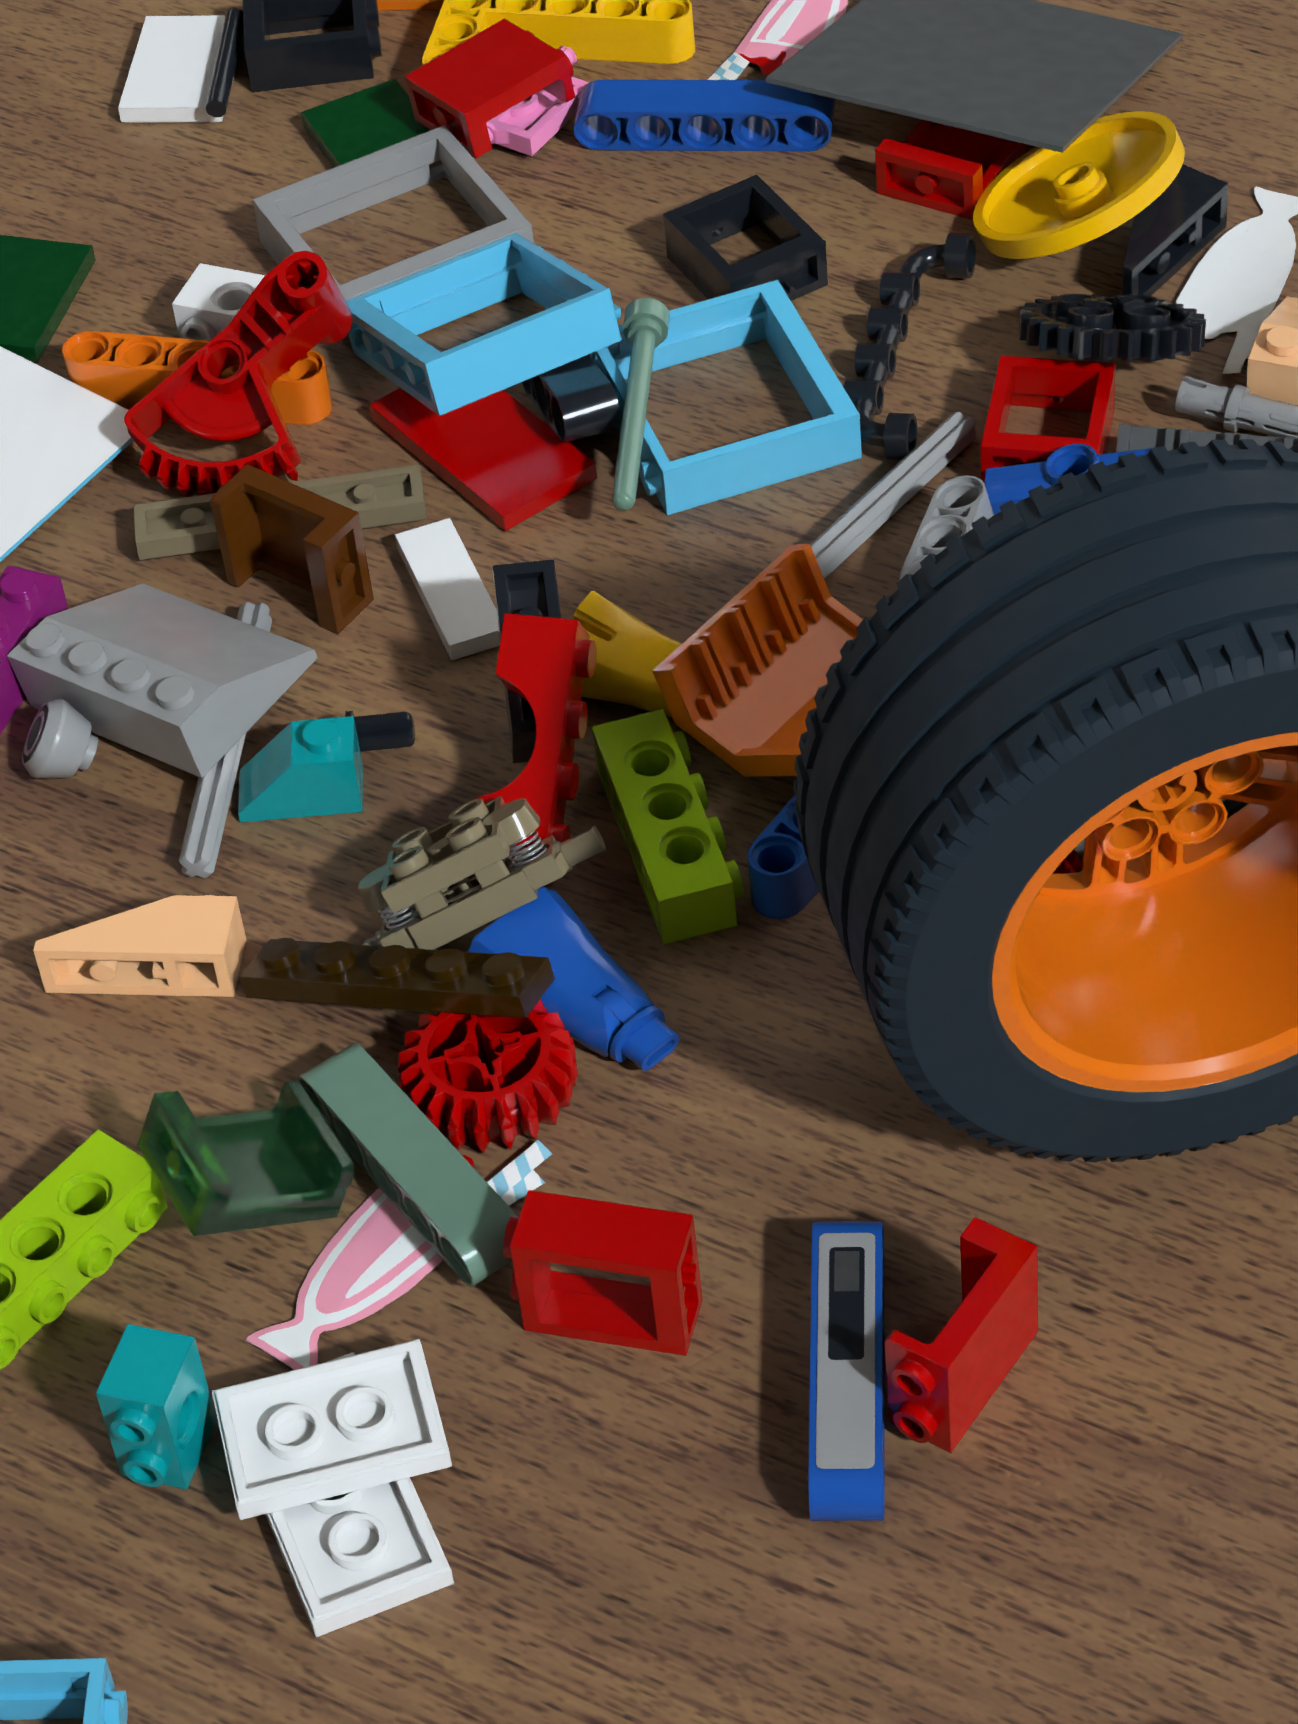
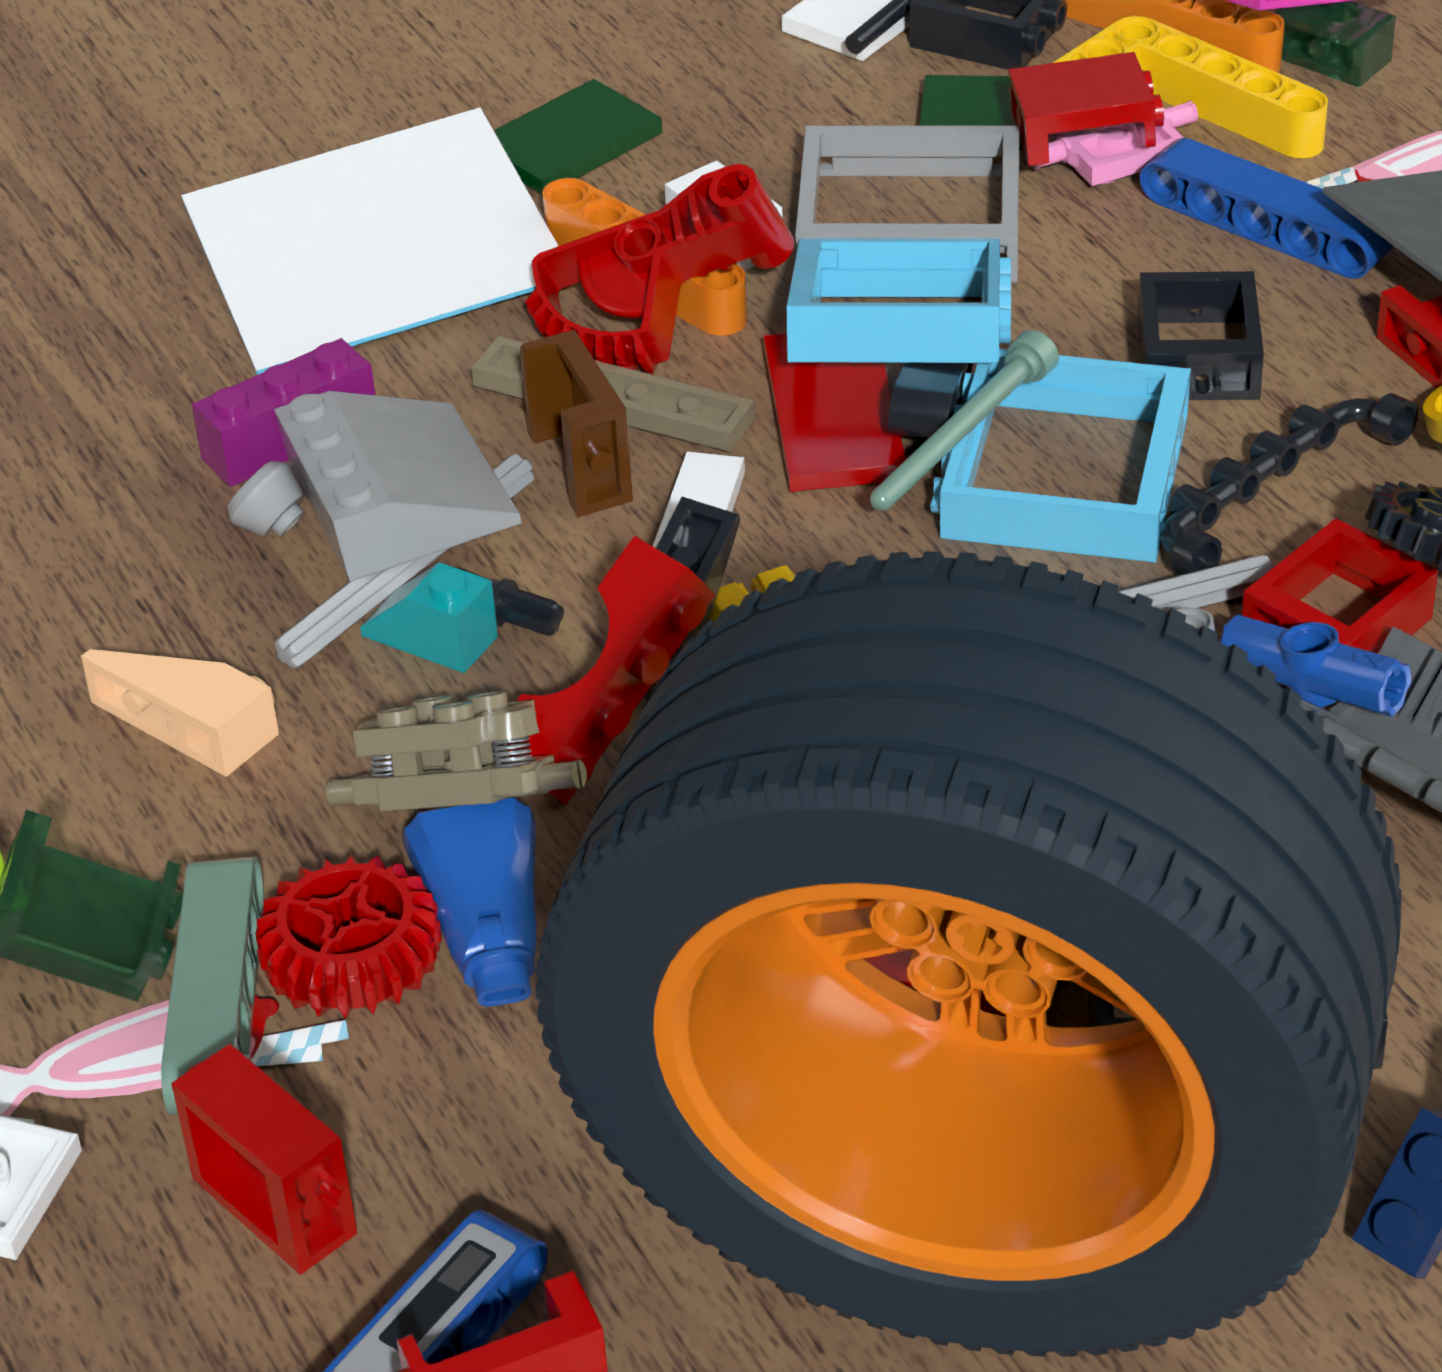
camera: 30 degrees right, 5 degrees down
(398, 977) = (336, 819): dark brown plate -> none

